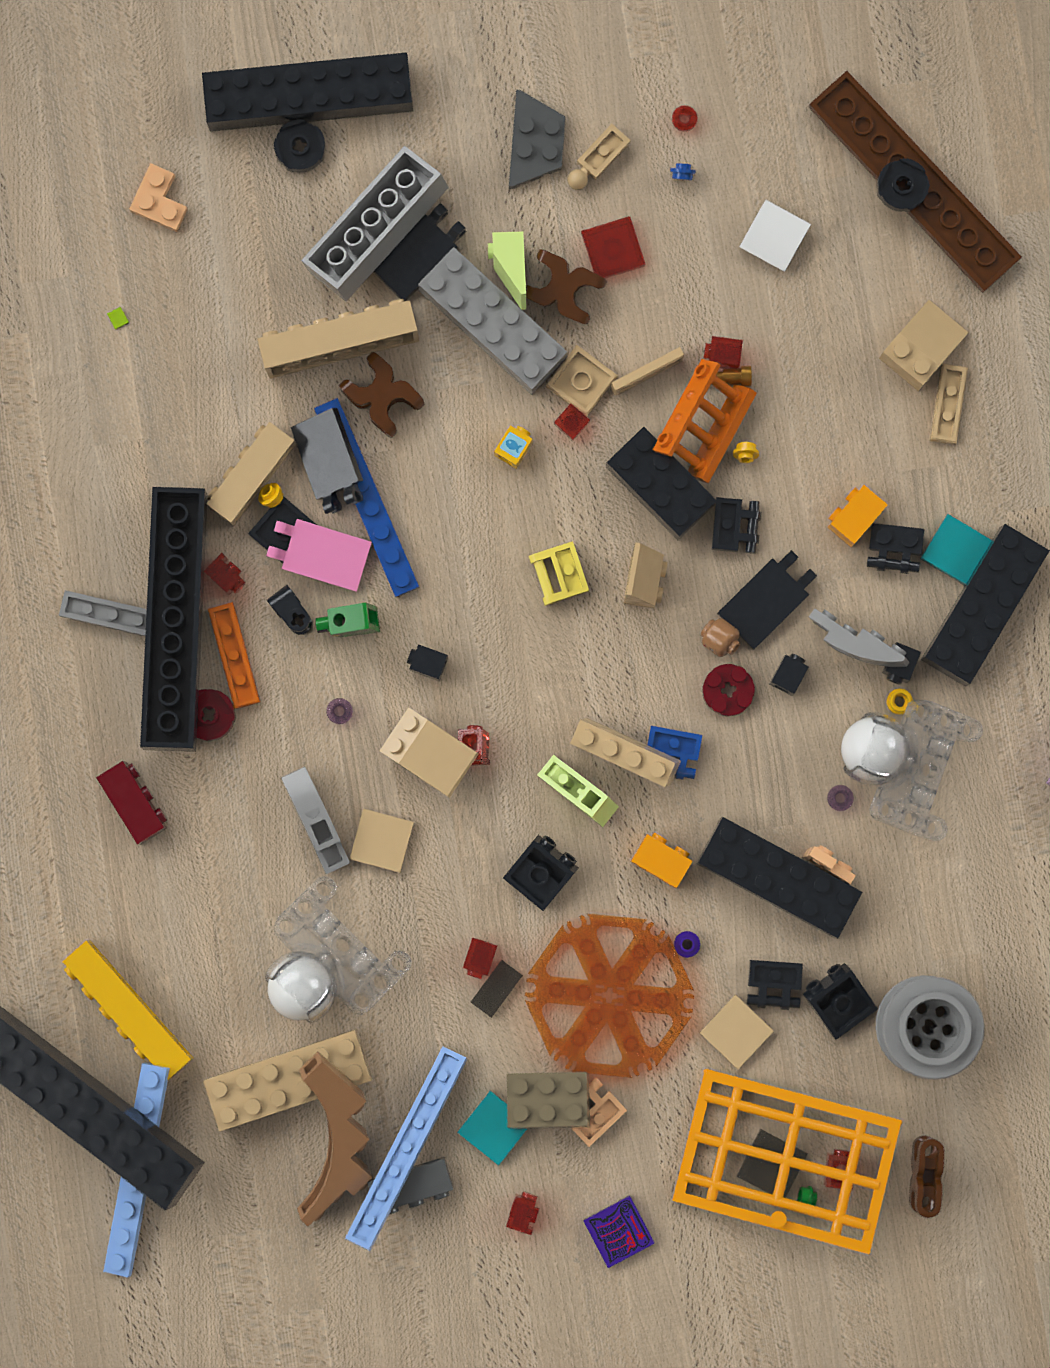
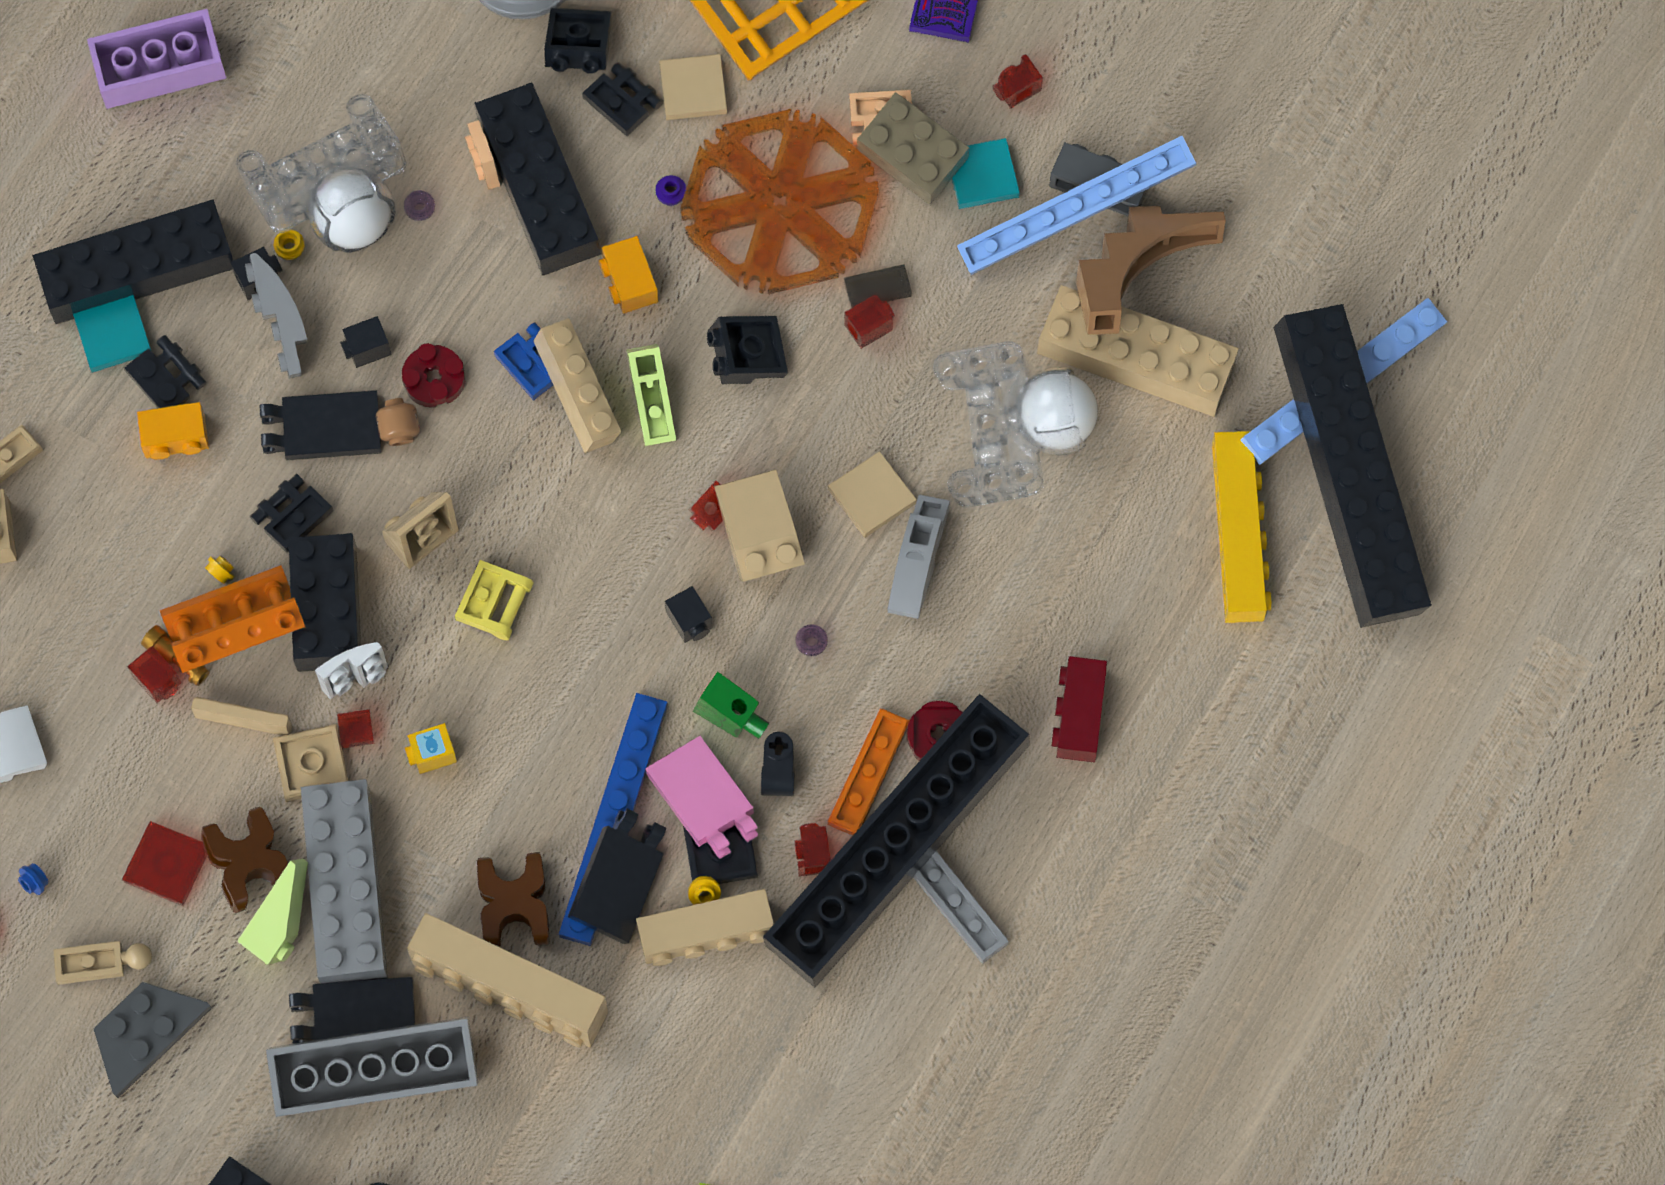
camera: 140 degrees left, 15 degrees down
(597, 460) = (362, 663): none -> white slope

